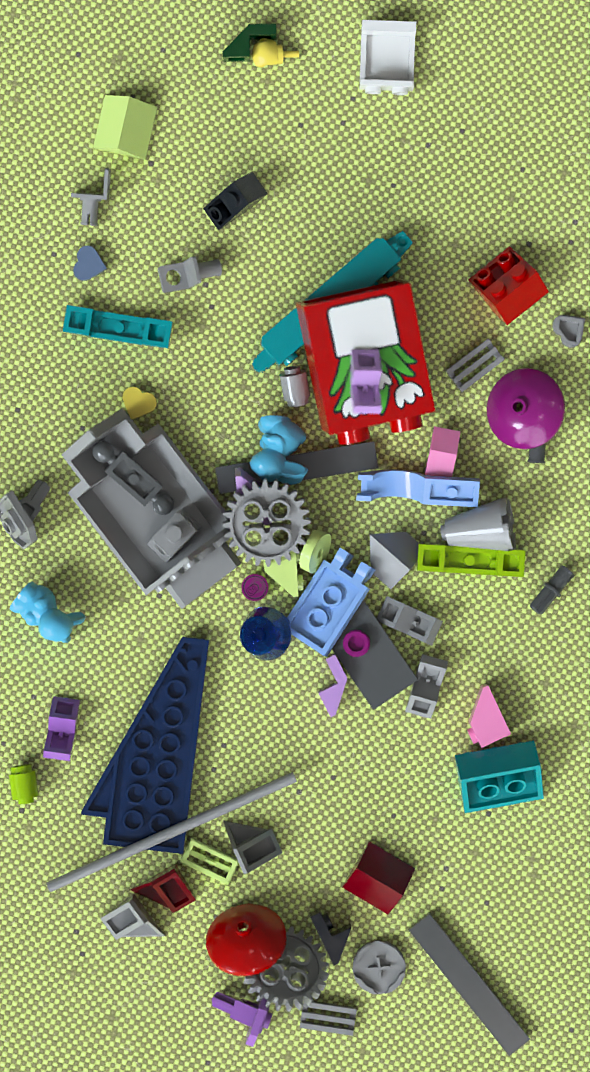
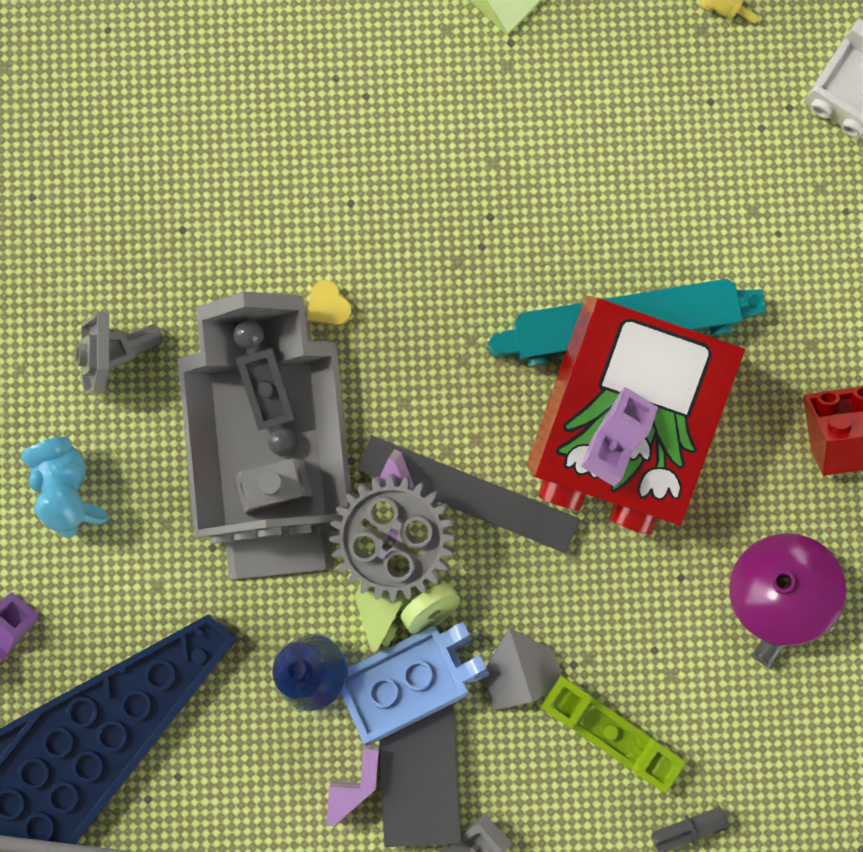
camera: 25 degrees right, 5 degrees down
(88, 264) = (368, 112): sand blue tile -> none
(91, 200) = (417, 39): light grey bracket -> none
(117, 327) = (356, 202): teal slope -> none
(189, 272) = (480, 190): light grey bracket -> none
(235, 200) = (584, 138): black slope -> none
(254, 587) = (331, 607): magenta tile -> none
(279, 440) = (465, 449): medium azure animal -> none
(295, 386) = (524, 396): light grey brick -> none
(356, 643) = (413, 751): magenta tile -> none
(409, 620) = (493, 762): light grey slope -> none
(419, 487) = (603, 608): light blue piece -> none
(442, 452) = (648, 589): bright pink slope -> none
(482, 527) = (650, 702): light grey cone -> none
(493, 352) = (784, 496): light grey tile -> none

